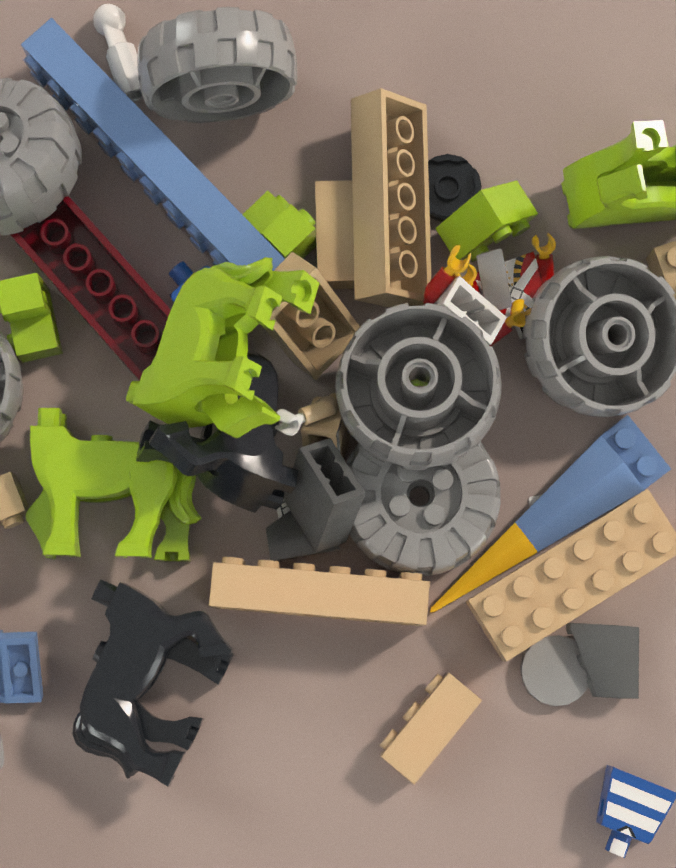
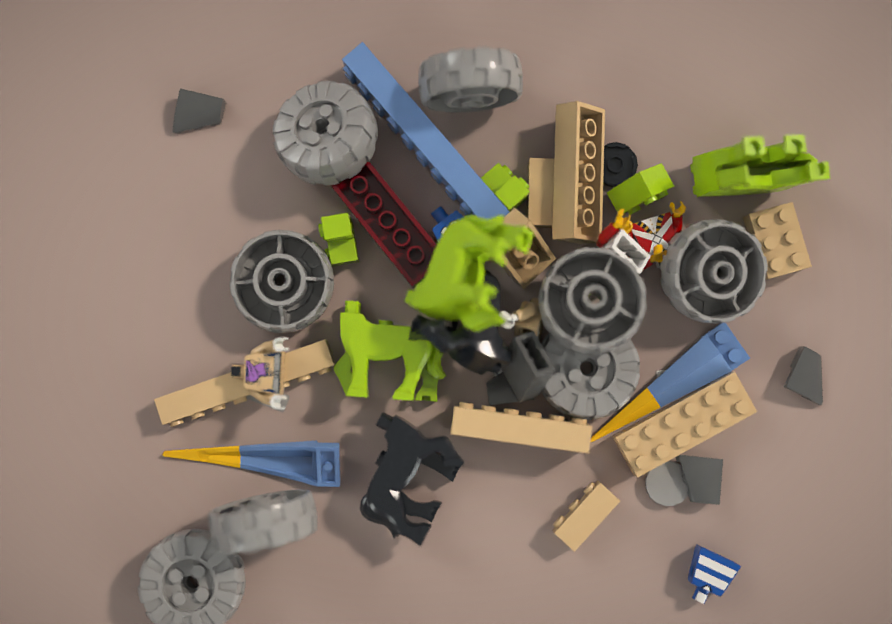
camera: 10 degrees right, 5 degrees up
(121, 55) = (405, 65): white piece -> none
(494, 279) = (643, 229): light grey sticker -> none

